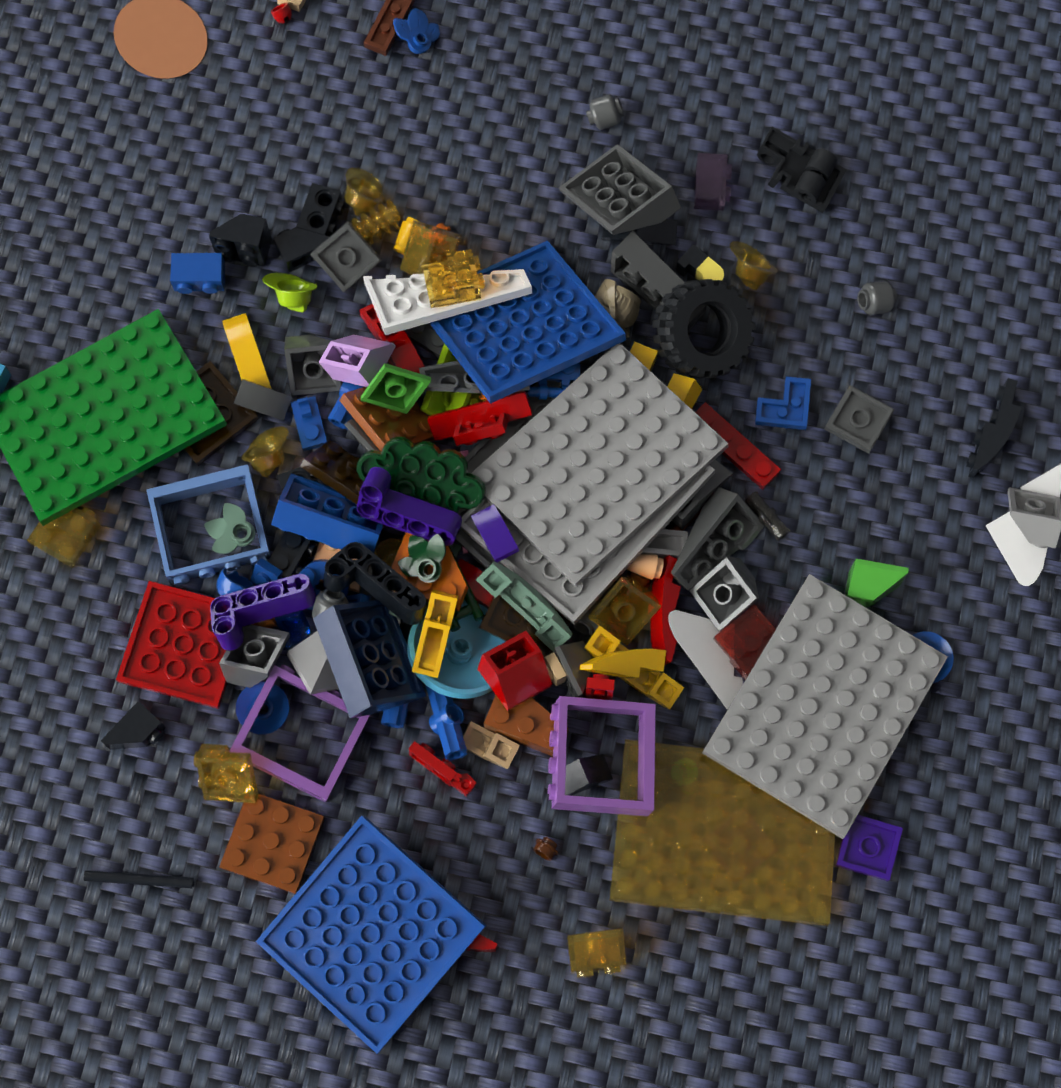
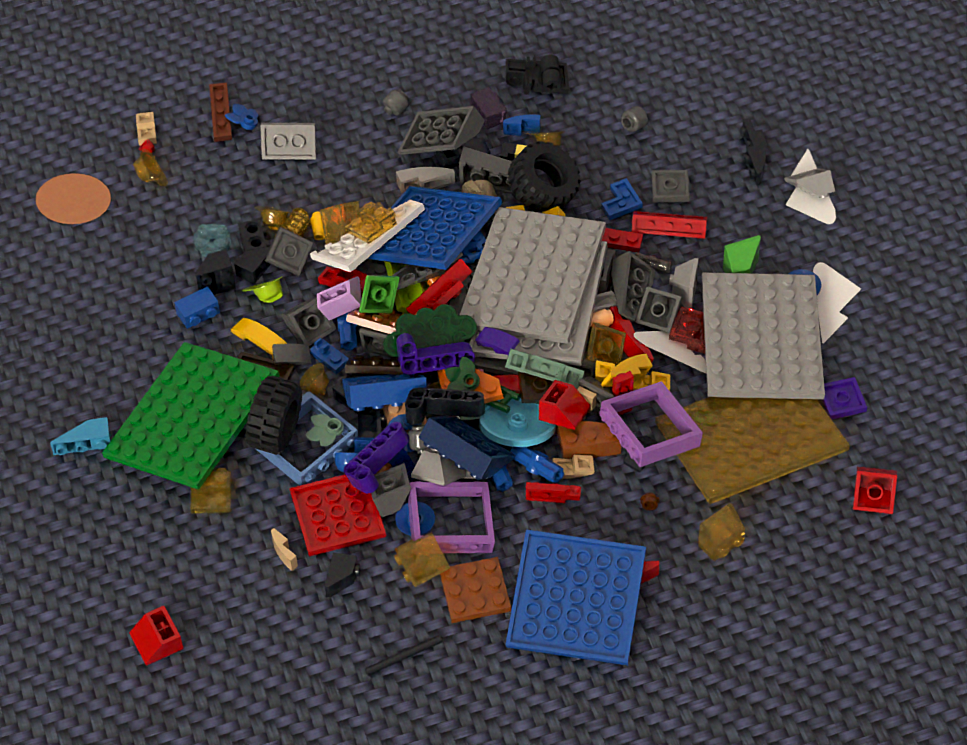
camera: 30 degrees left, 20 degrees down
(91, 652) = (282, 548): none -> tan slope
(166, 489) = (273, 415): none -> black tyre
(264, 47) = (148, 168): none -> clear yellow piece
(278, 197) = (210, 231): none -> clear light blue plate
(435, 633) = (499, 411): yellow slope -> none
(442, 98) = (288, 141): none -> light grey plate
(570, 240) = (425, 177): none -> light grey slope
(728, 225) = (517, 124): none -> blue slope
(783, 571) = (685, 281): none -> light grey slope
(821, 473) = (669, 224): none -> red fence
(822, 1000) = (875, 490): none -> red slope
(961, 691) = (834, 295): none -> white sticker

